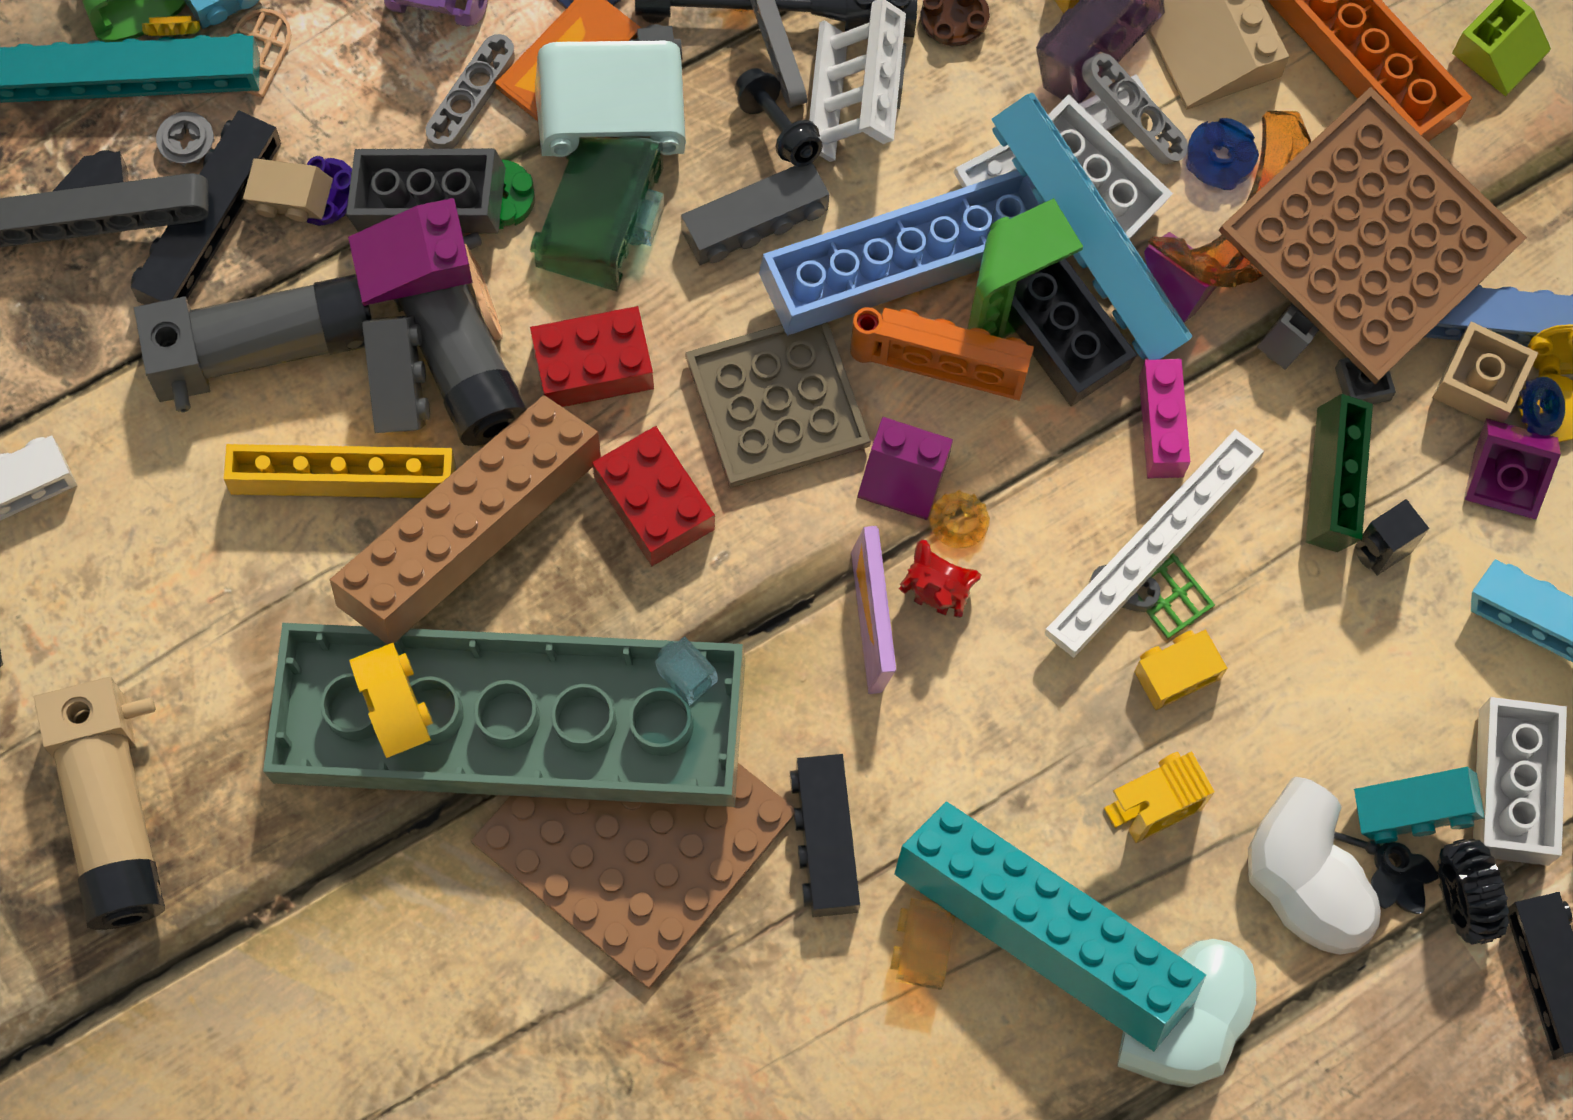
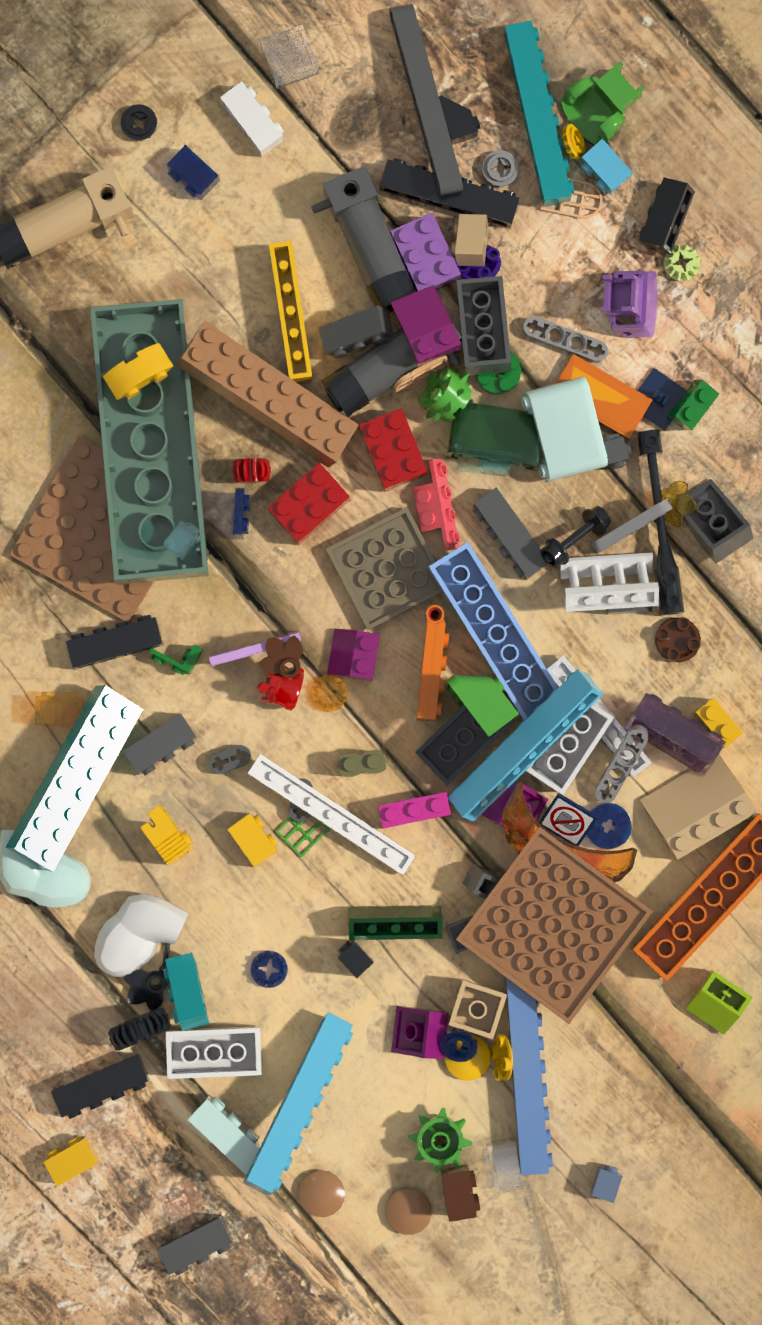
camera: 80 degrees right, 15 degrees up
(76, 588) = (192, 173): none -> clear blue brick
(292, 253) = (425, 253): none -> medium lavender brick
(522, 260) = (445, 394): none -> bright green brick
(583, 571) = (251, 470): none -> red gear
(651, 598) = (241, 505): none -> clear blue plate
(692, 316) = (435, 505): none -> coral bracket
(870, 718) = (190, 657): none -> green bracket
(895, 560) = (279, 654): none -> reddish brown plate
(1006, 788) = (160, 745): none -> dark grey brick
(1052, 684) = (231, 765): none -> dark grey beam
(1080, 483) = (355, 764): none -> olive brick
(1207, 200) = (568, 819): none -> piece
(1374, 687) = (263, 959): none -> clear blue gear

